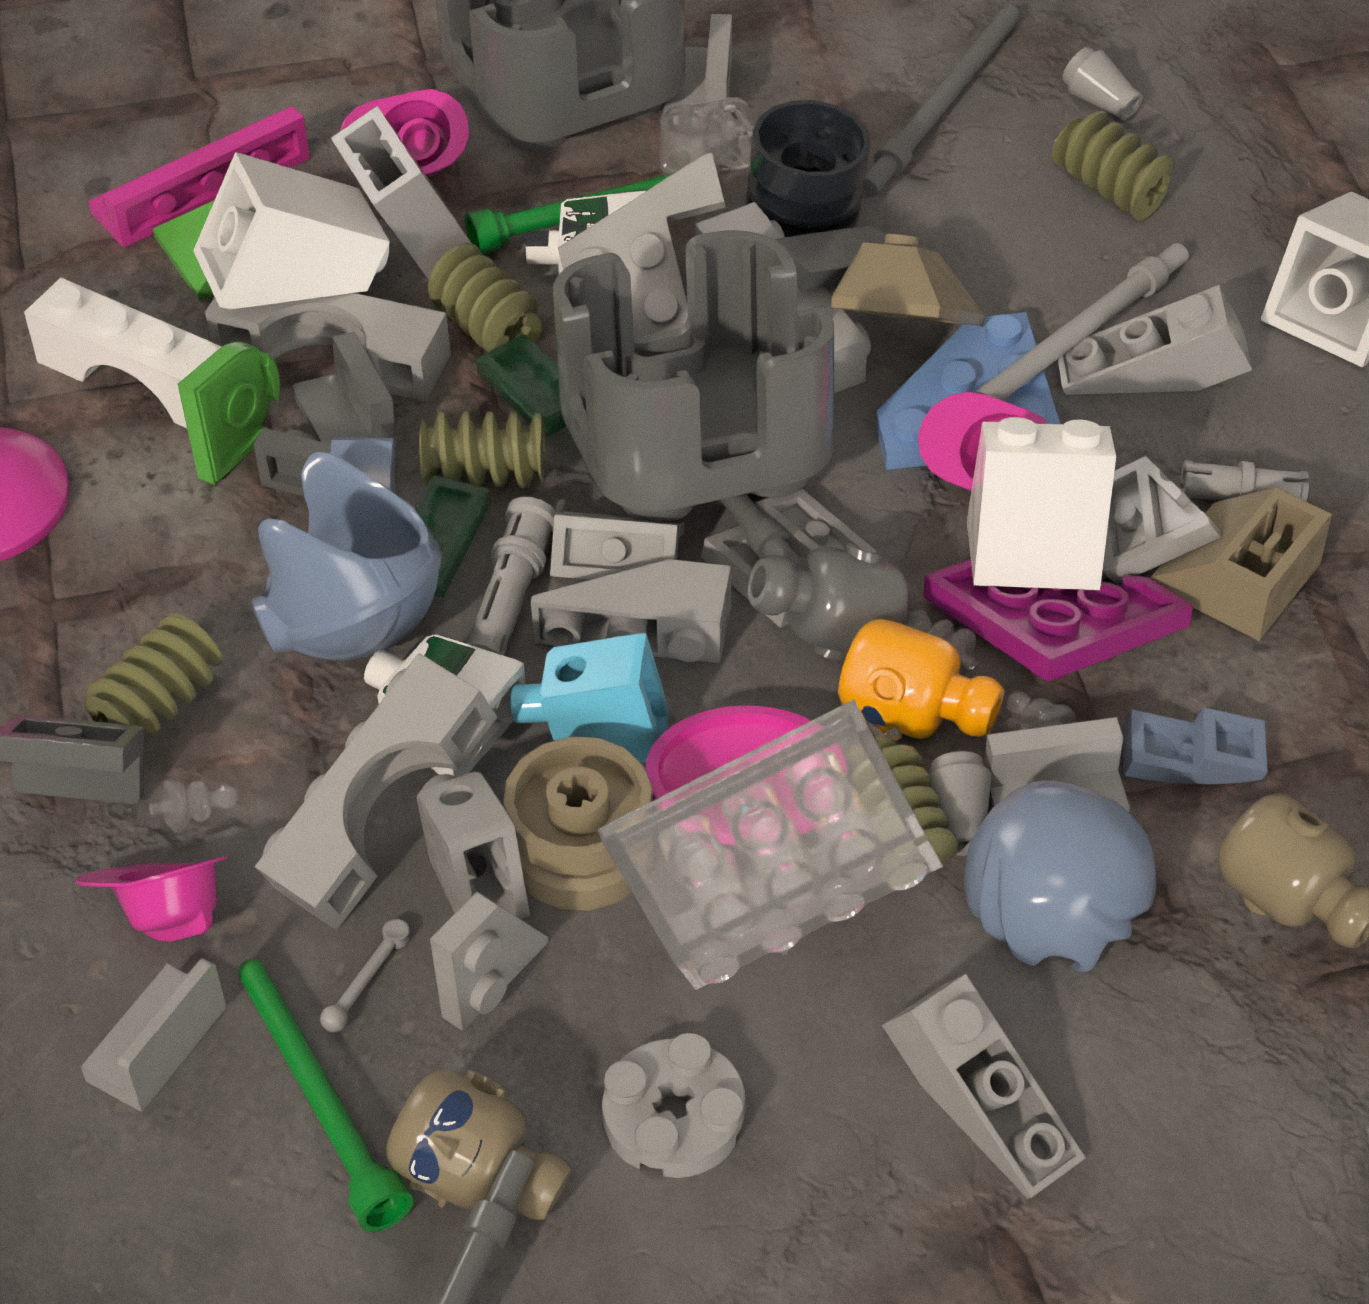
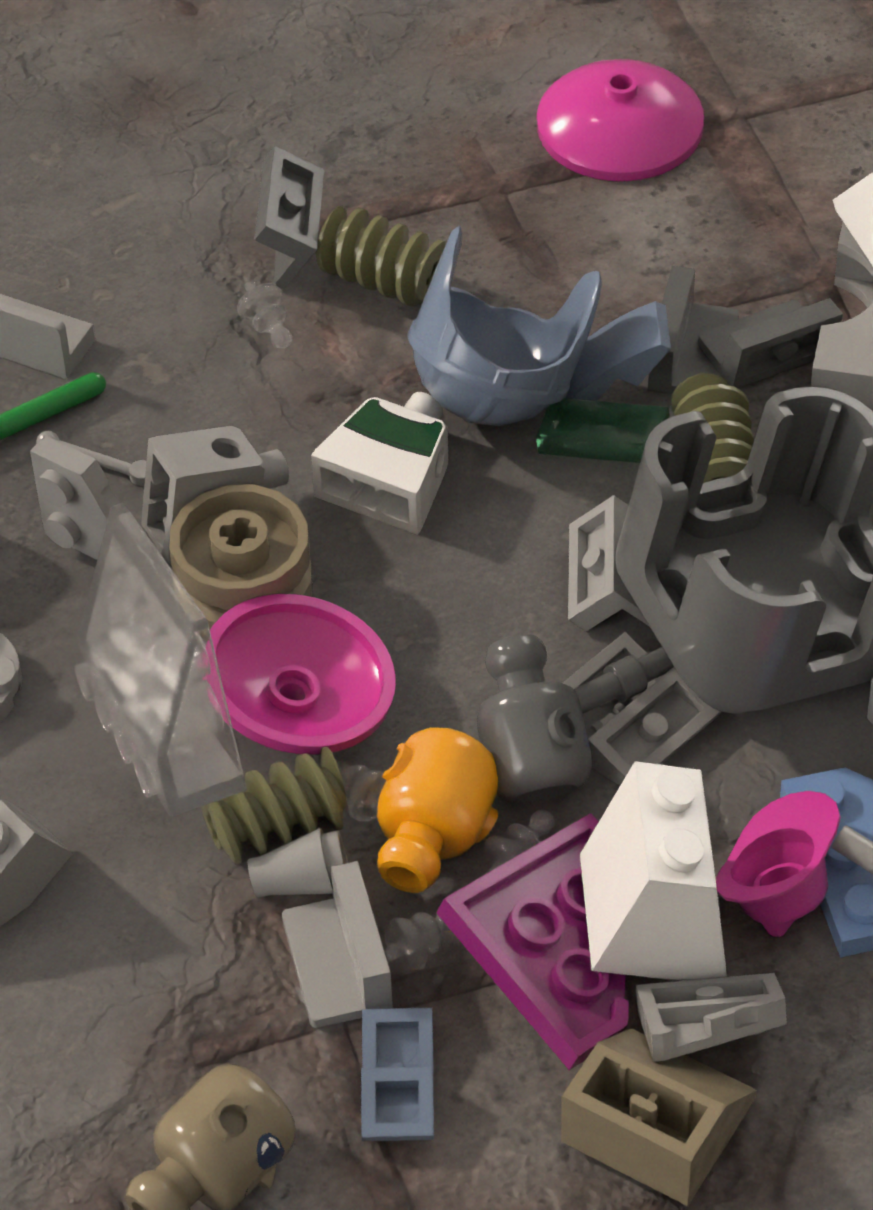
camera: 85 degrees right, 0 degrees up
(82, 329) = (771, 207): white arch -> none
(163, 898) = (161, 297): dark pink piece -> none
(227, 406) = (726, 239): bright green tile -> none
(420, 724) = (313, 414): light grey arch -> none
(516, 562) = (569, 492): light grey pin -> none
(598, 692) = (380, 544): medium azure torso -> none
(673, 601) = (518, 587): light grey slope -> none
(1059, 873) = (198, 937): sand blue piece -> none
(1228, 482) = (792, 1122): light grey pin -> none

